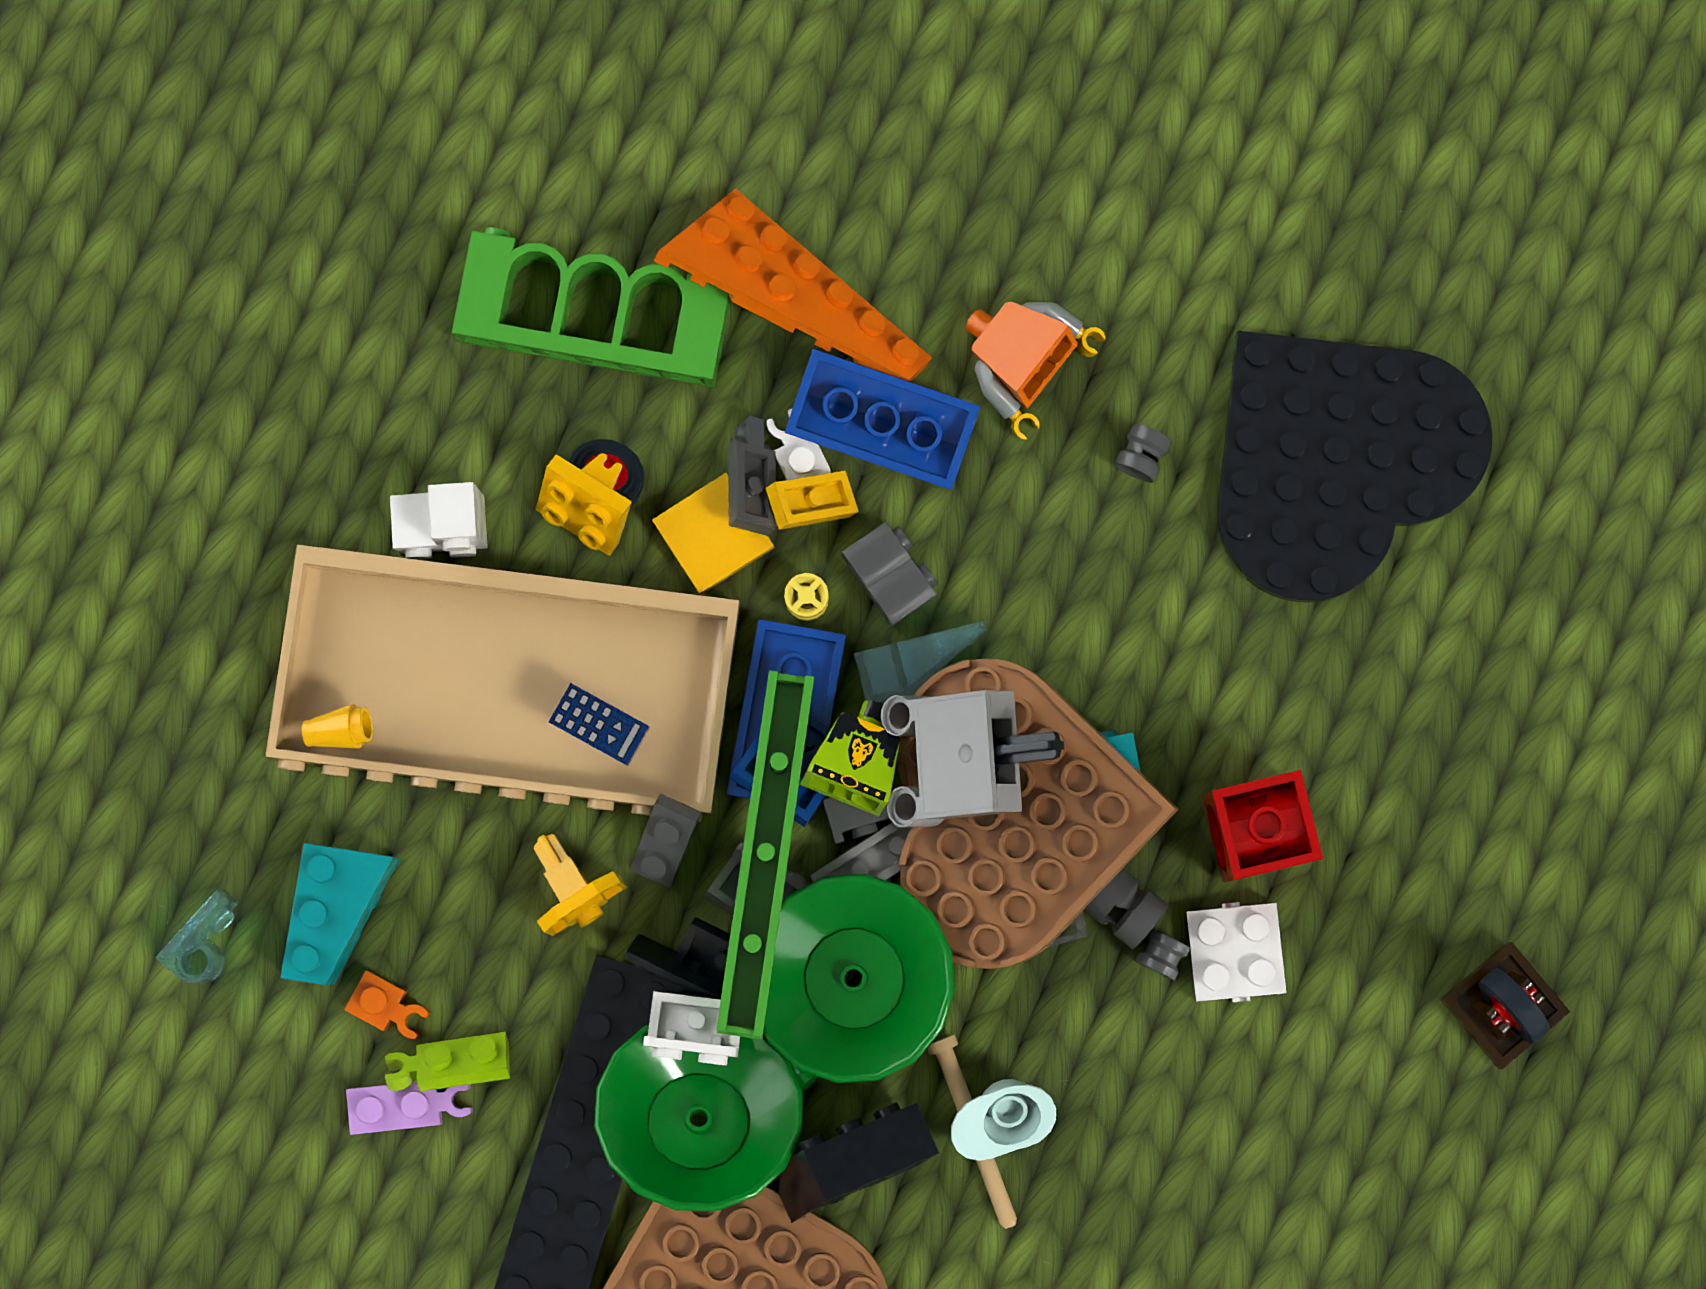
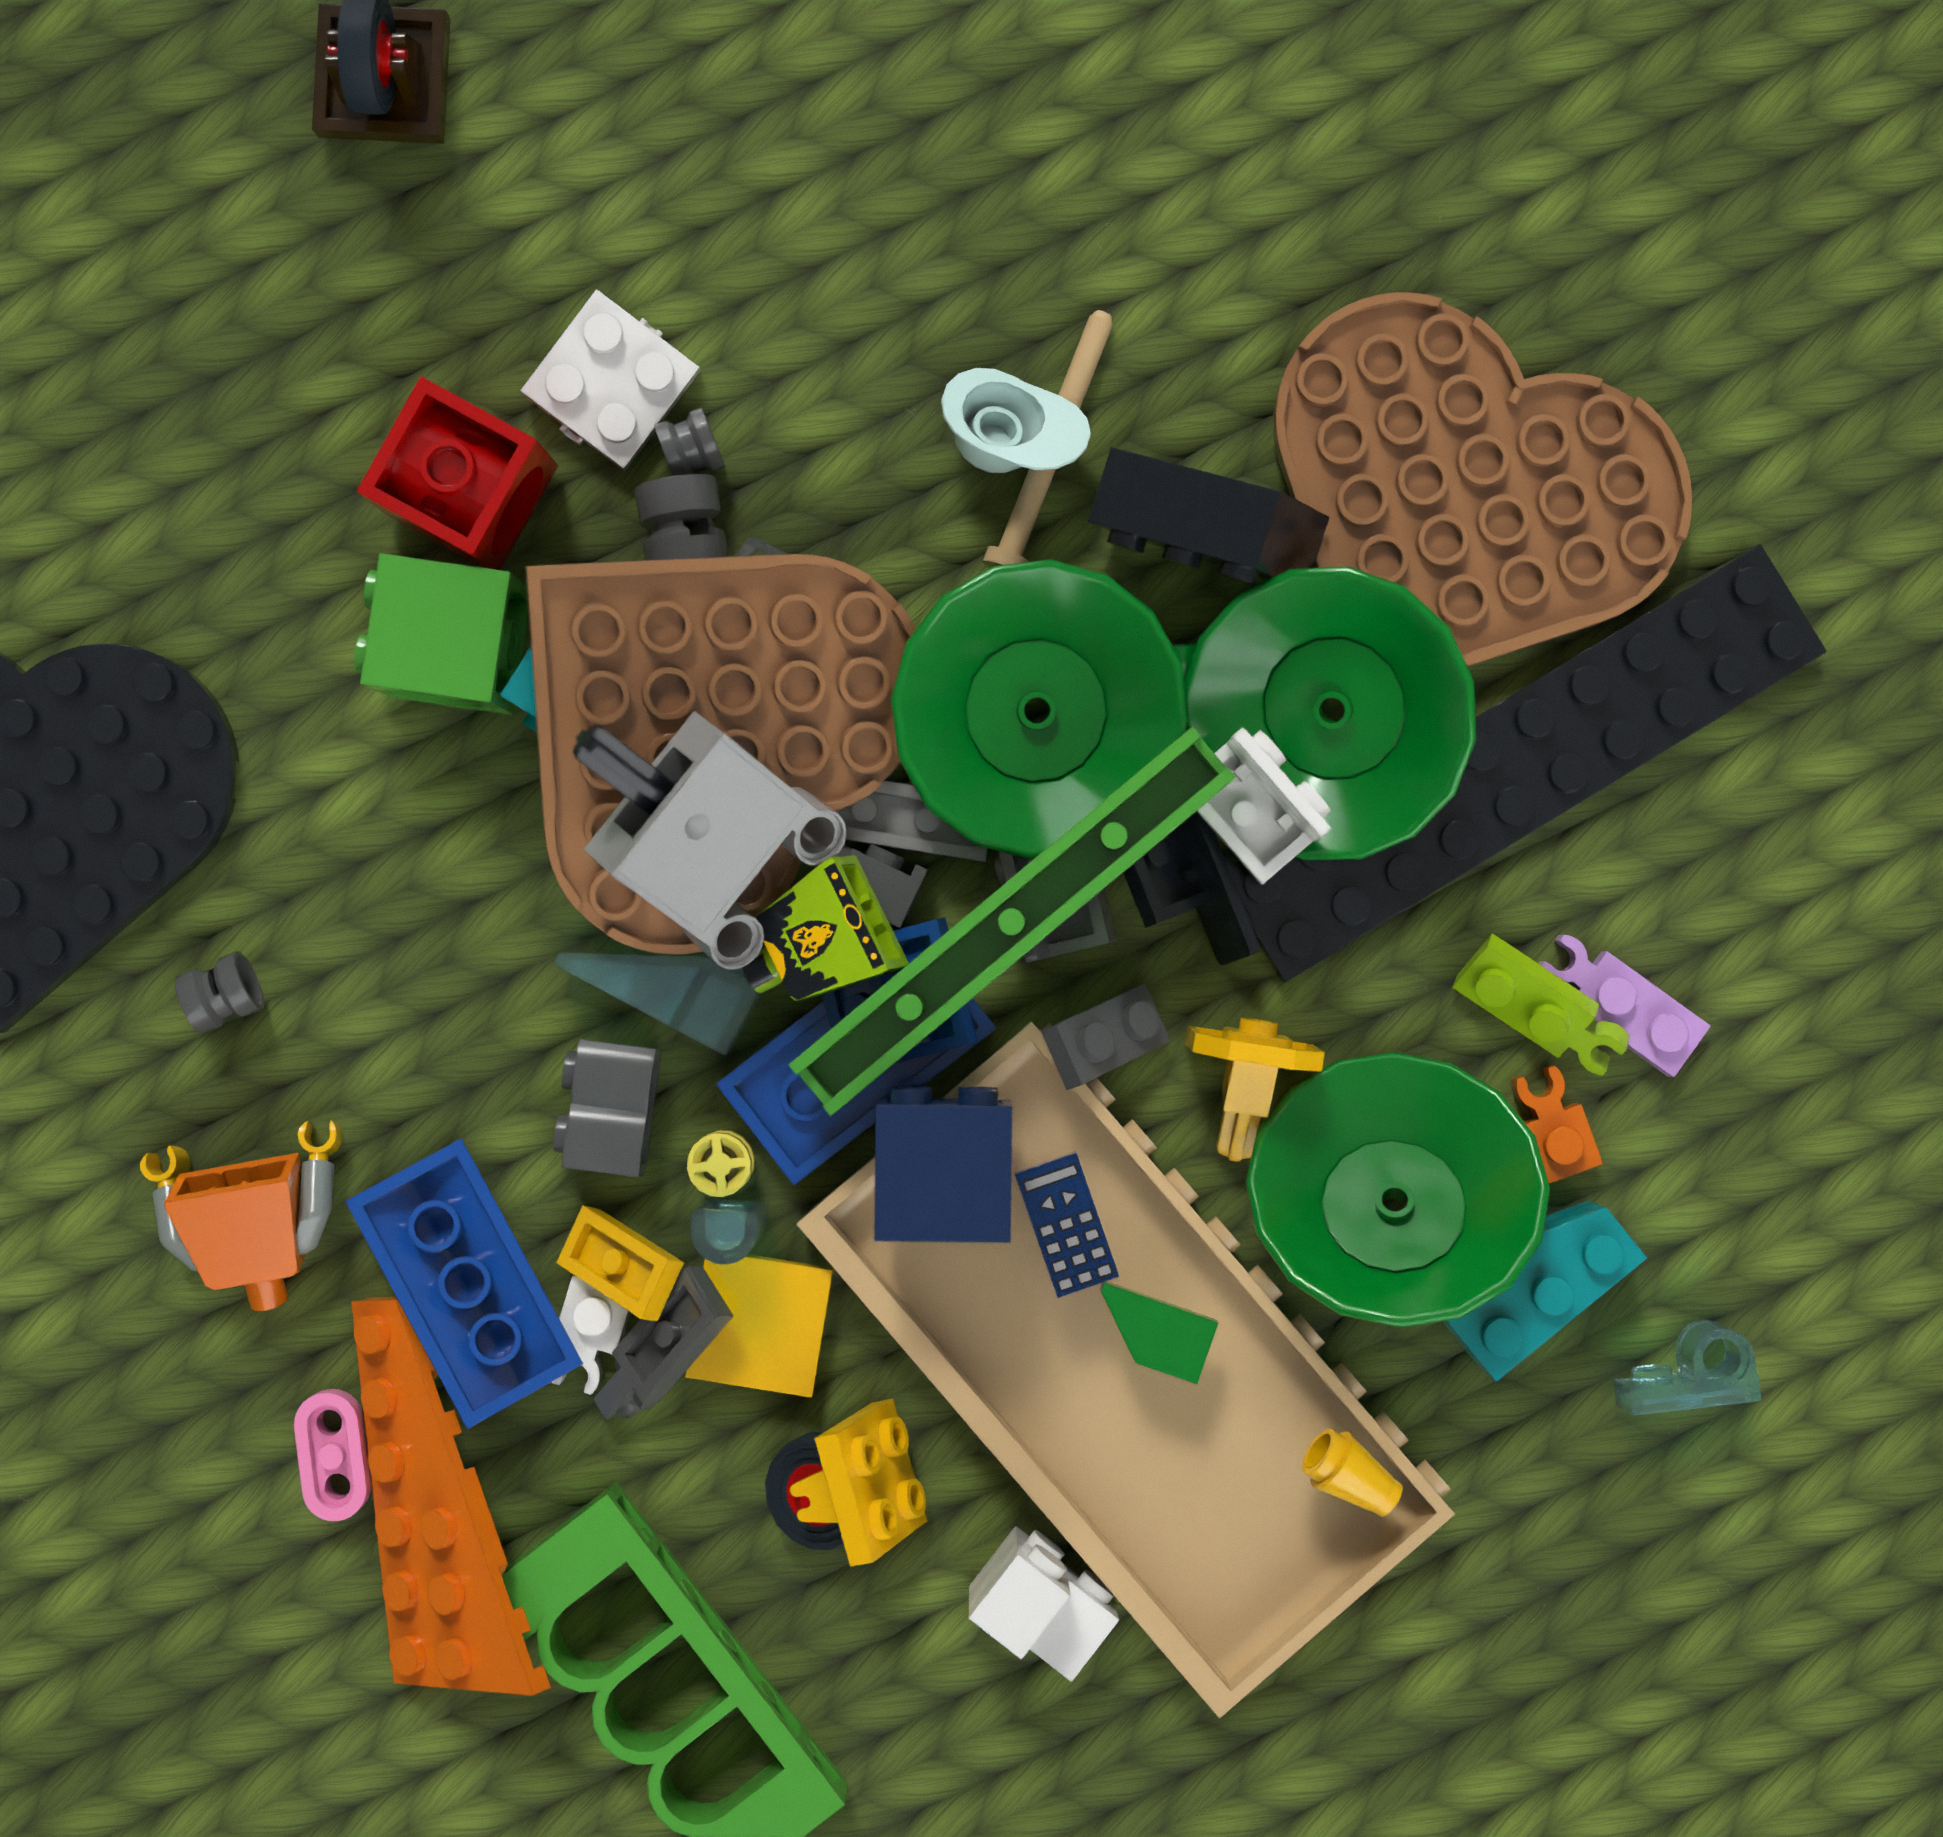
camera: 135 degrees left, 5 degrees up
(469, 927) = (1409, 1135): none -> green dish
(501, 712) = (1161, 1332): none -> green tile
(689, 696) = (943, 1166): none -> dark blue brick
(771, 567) = (728, 1228): none -> clear light blue brick
(872, 274) = (332, 1452): none -> bright pink plate
(1195, 738) = (442, 633): none -> bright green brick

